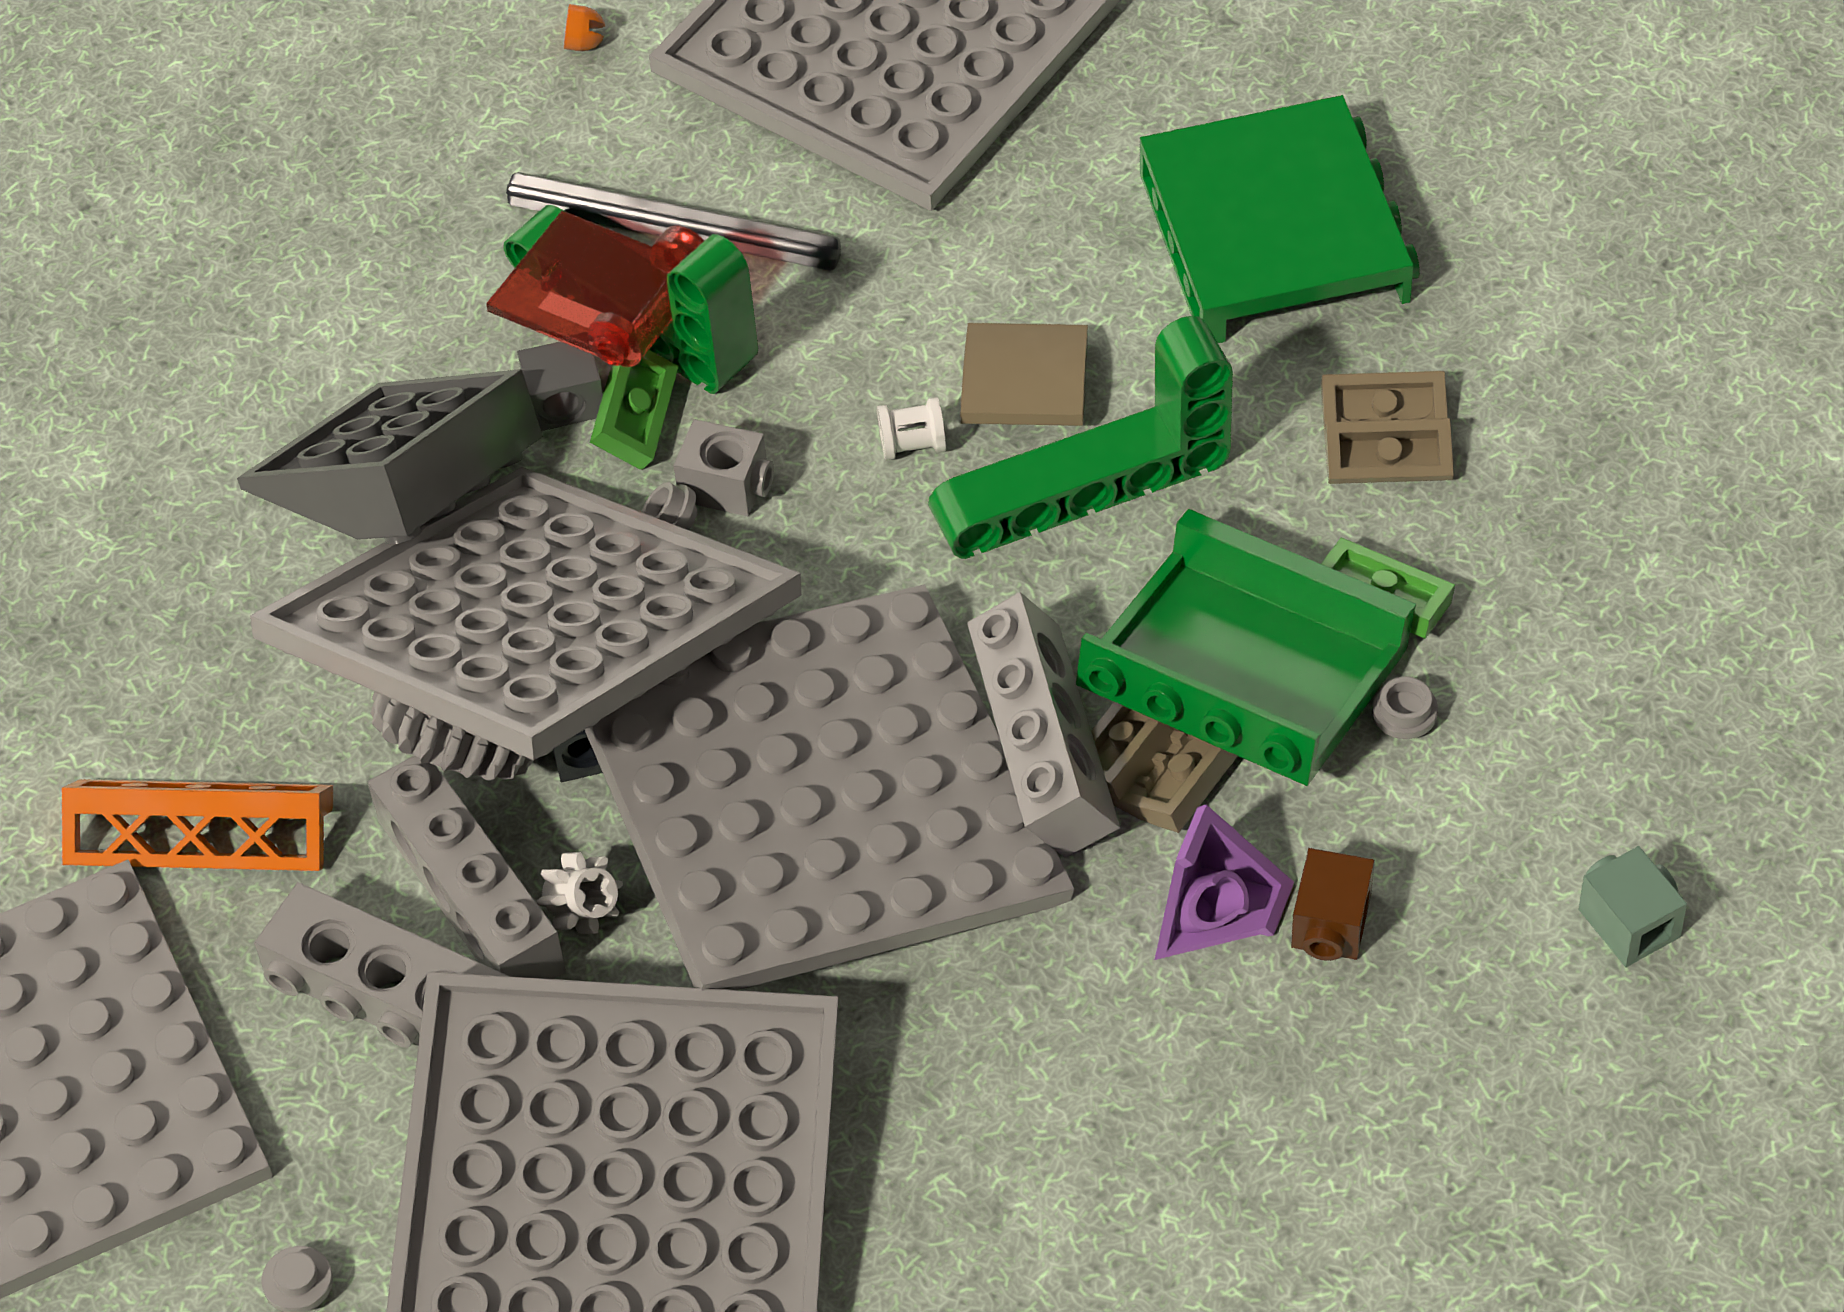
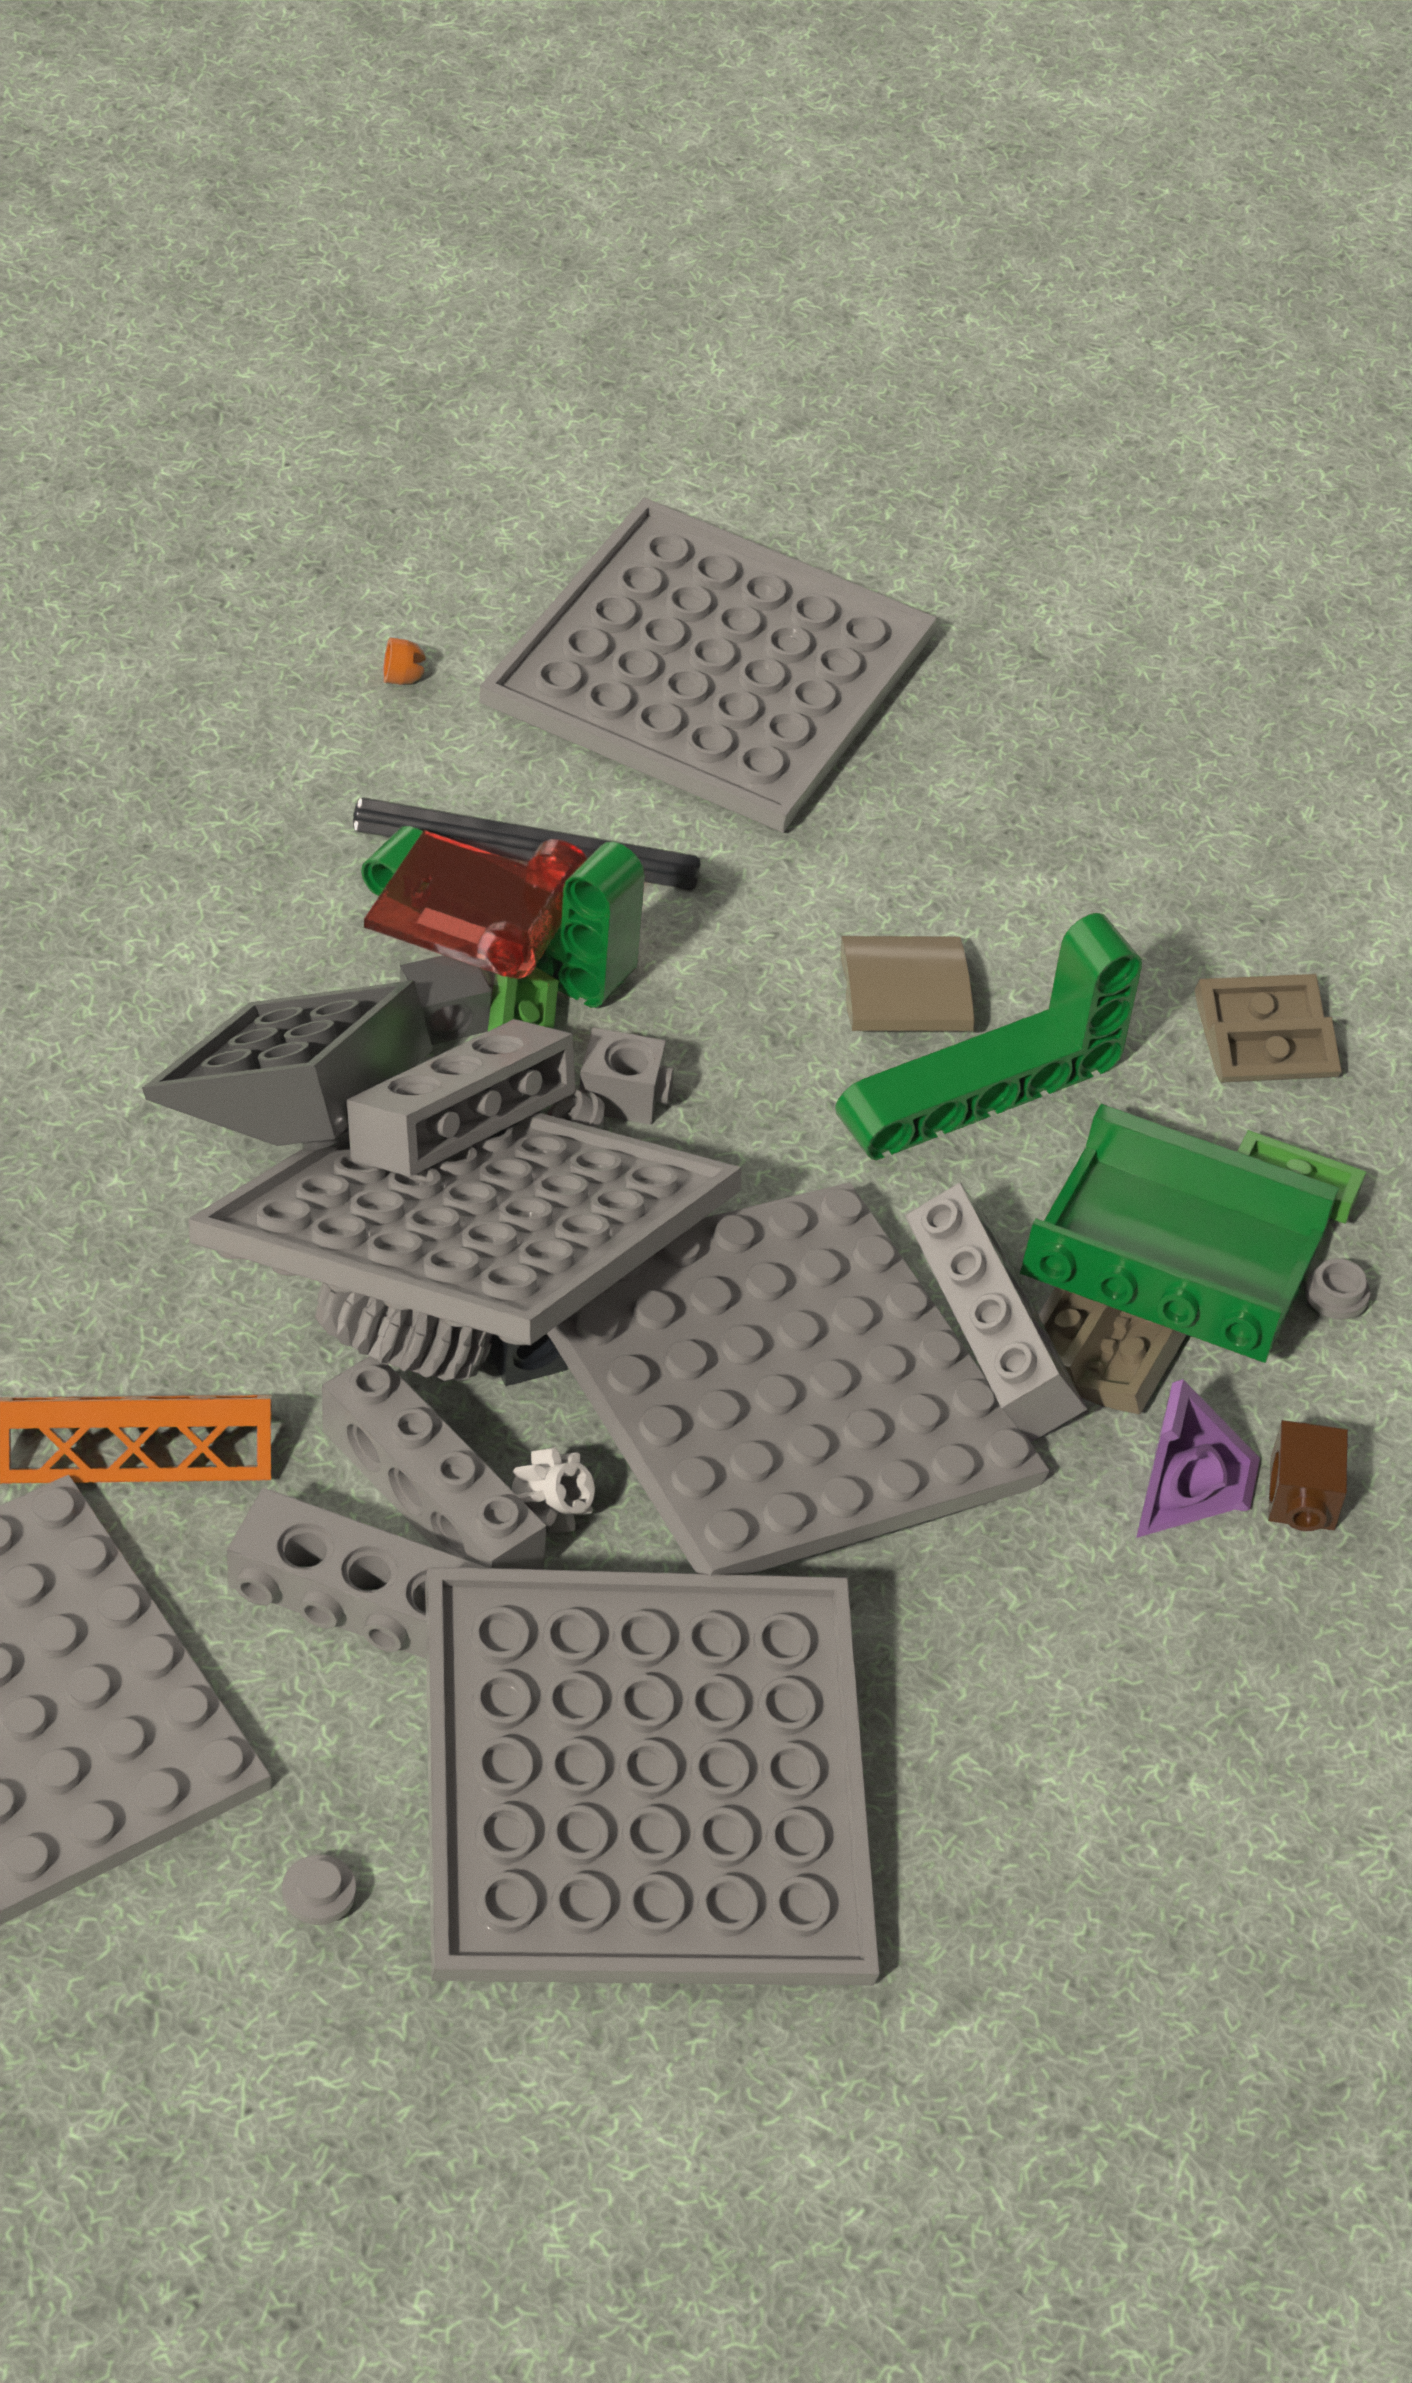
camera: 15 degrees left, 5 degrees down
(543, 492) = (460, 1097): none -> light grey brick
(899, 441) = (824, 1039): white bush -> none
(1274, 211) = (1123, 827): green panel -> none

